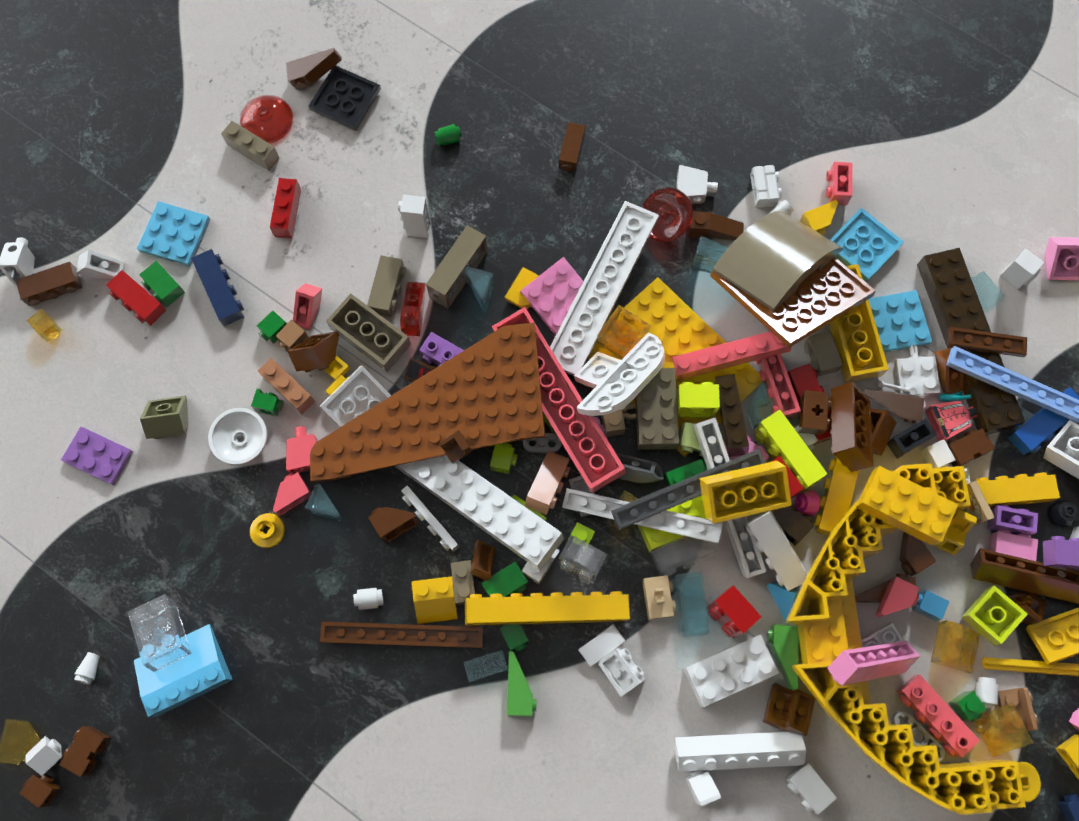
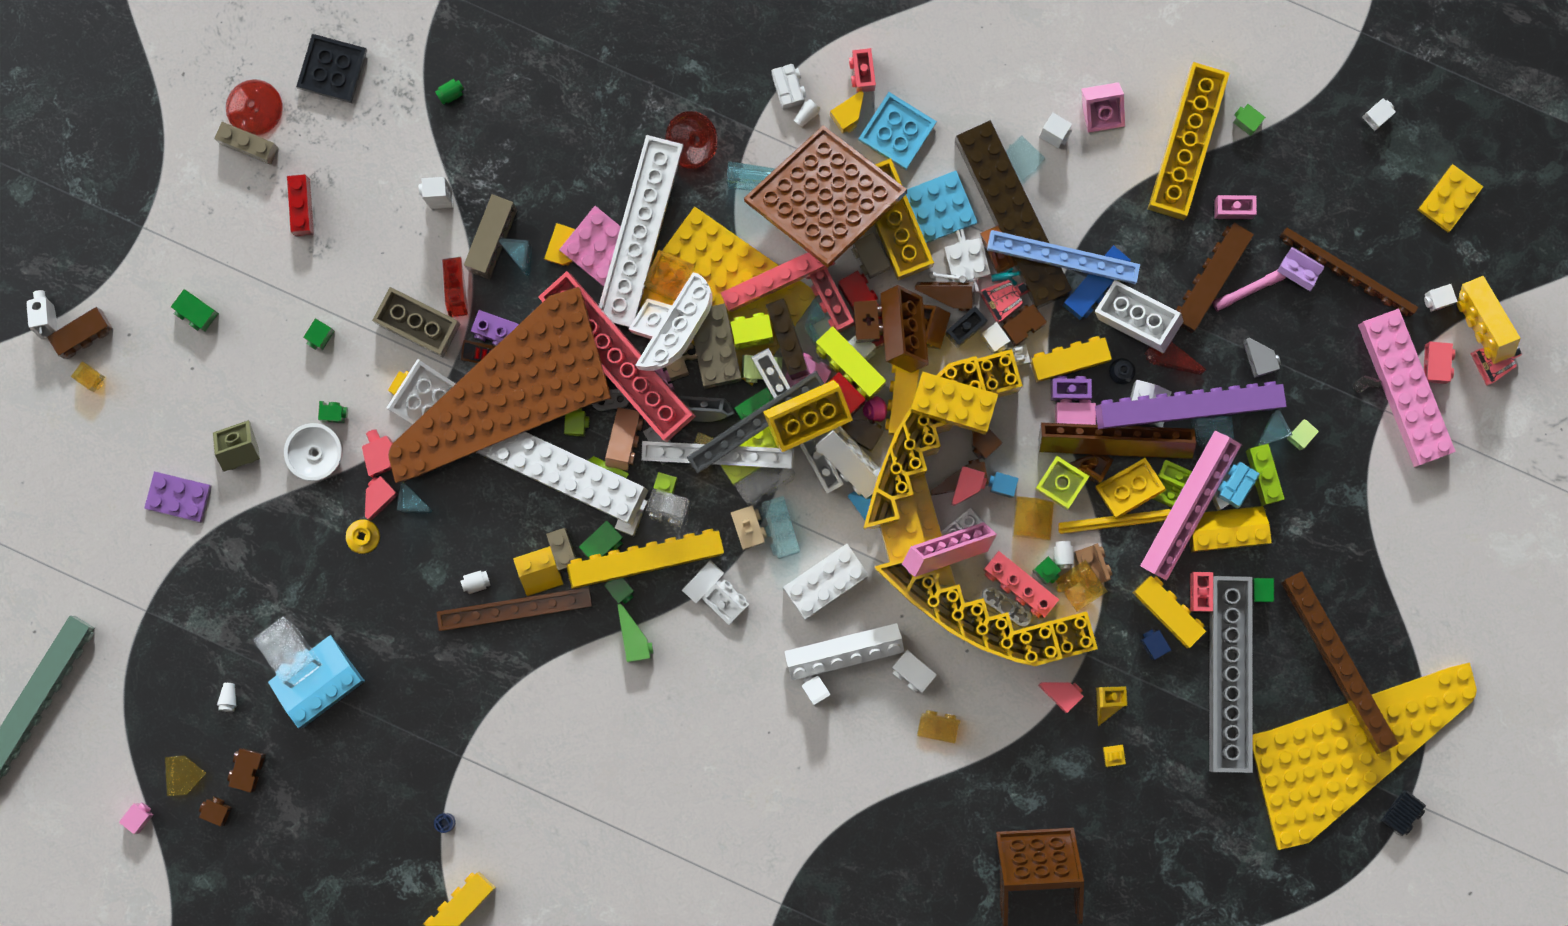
camera: 10 degrees left, 10 degrees up
(44, 755) = (210, 781): white brick -> none
(98, 265) = (126, 304): white slope -> none
(135, 298) = (172, 331): red brick -> none
(173, 233) = (191, 253): medium azure plate -> none
(218, 288) = (252, 303): dark blue brick -> none
(286, 386) = (347, 392): nougat brick -> none
(291, 336) = (340, 341): medium nougat brick -> none
(306, 305) = (347, 305): coral slope -> none
(311, 68) = (288, 45): slope -> none
(315, 352) = (368, 352): reddish brown slope -> none
(337, 368) = (392, 364): yellow tile -> none
(386, 285) = (423, 268): dark tan brick -> none
(392, 522) = (482, 506): reddish brown slope -> none
(434, 526) = (510, 491): white plate -> none
(455, 446) = (528, 425): reddish brown panel -> none
(482, 560) = (575, 525): reddish brown tile -> none
(485, 666) = (598, 622): clear light blue tile -> none
(571, 147) = (581, 81): reddish brown brick -> none
(694, 184) = (714, 99): white torso -> none
(714, 227) = (744, 141): reddish brown slope -> none
(733, 612) = (817, 528): red brick -> none
(775, 258) = (806, 170): dark tan slope -> none
(785, 648) = (873, 550): bright green slope -> none
(789, 709) = (884, 606): reddish brown slope -> none
(956, 533) = (1018, 410): yellow brick -> none
(979, 505) = (1032, 380): tan tile -> none
(987, 342) = (1025, 217): reddish brown tile -> none
(1030, 781) = (1111, 626): yellow piece -> none

